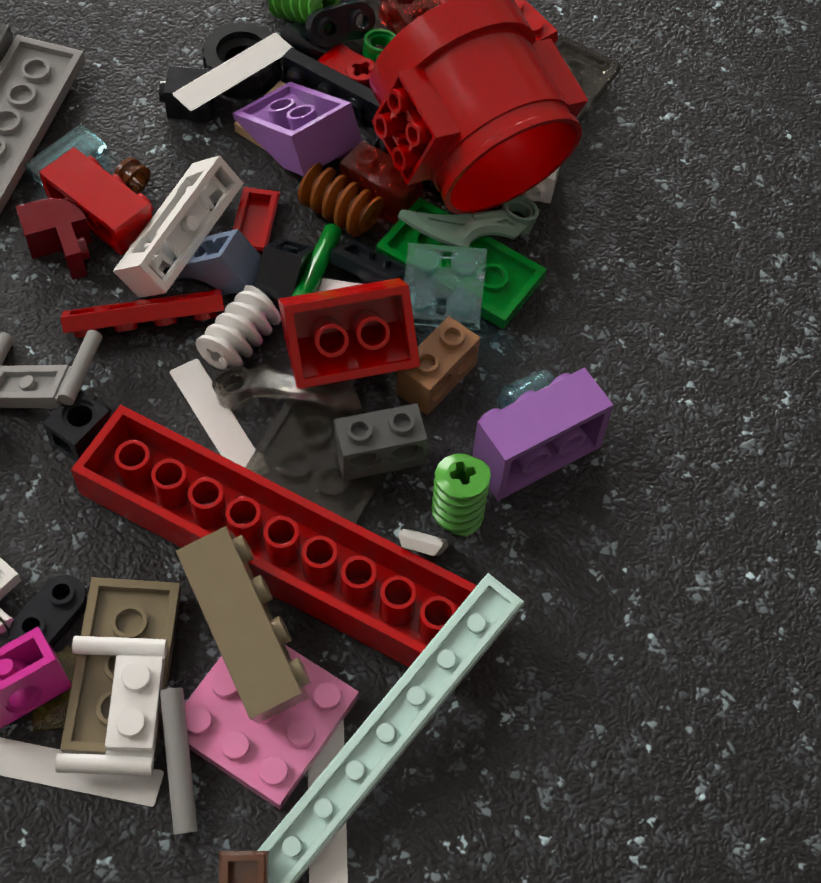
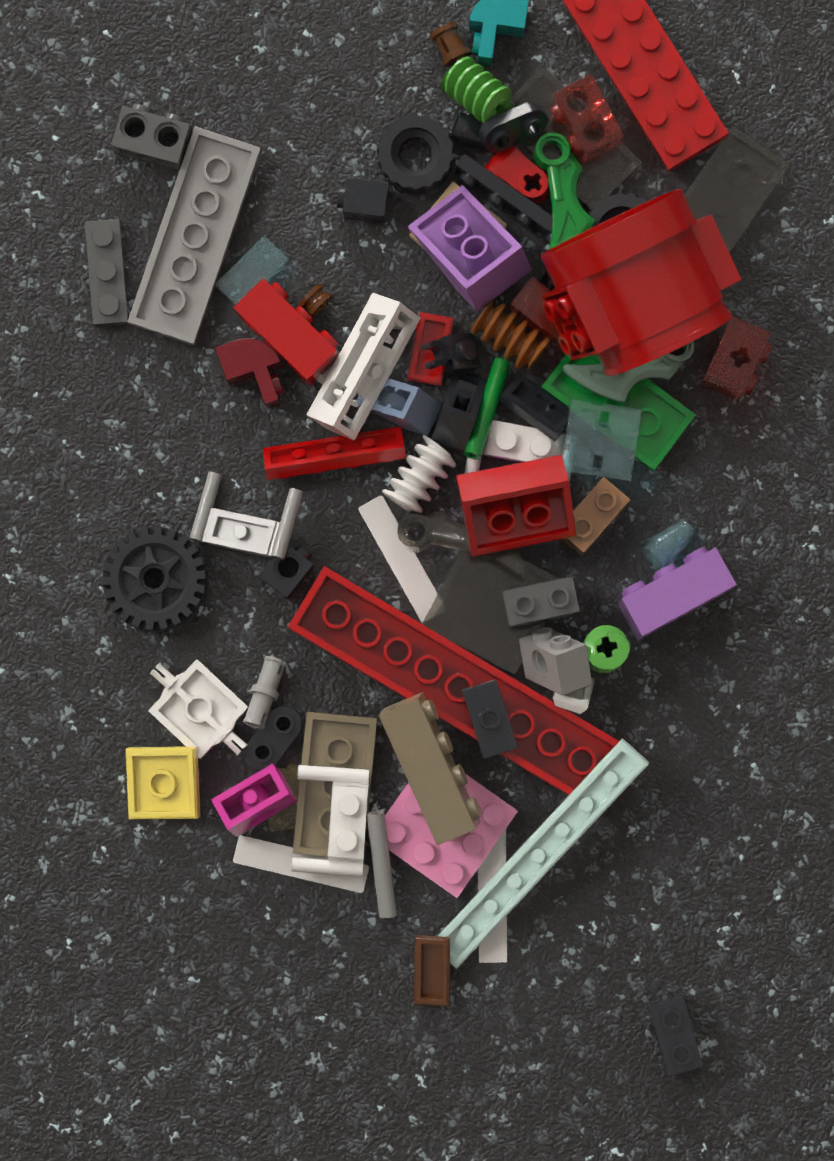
camera: 10 degrees right, 25 degrees up
(40, 559) = (264, 692): none -> light grey pin
(232, 72) = (409, 184): white sticker -> none
(283, 216) = (454, 352): none -> black plate
(319, 563) = (489, 719): none -> black plate
(401, 499) = (555, 661): none -> light grey brick
(584, 221) = (740, 338): none -> clear red brick

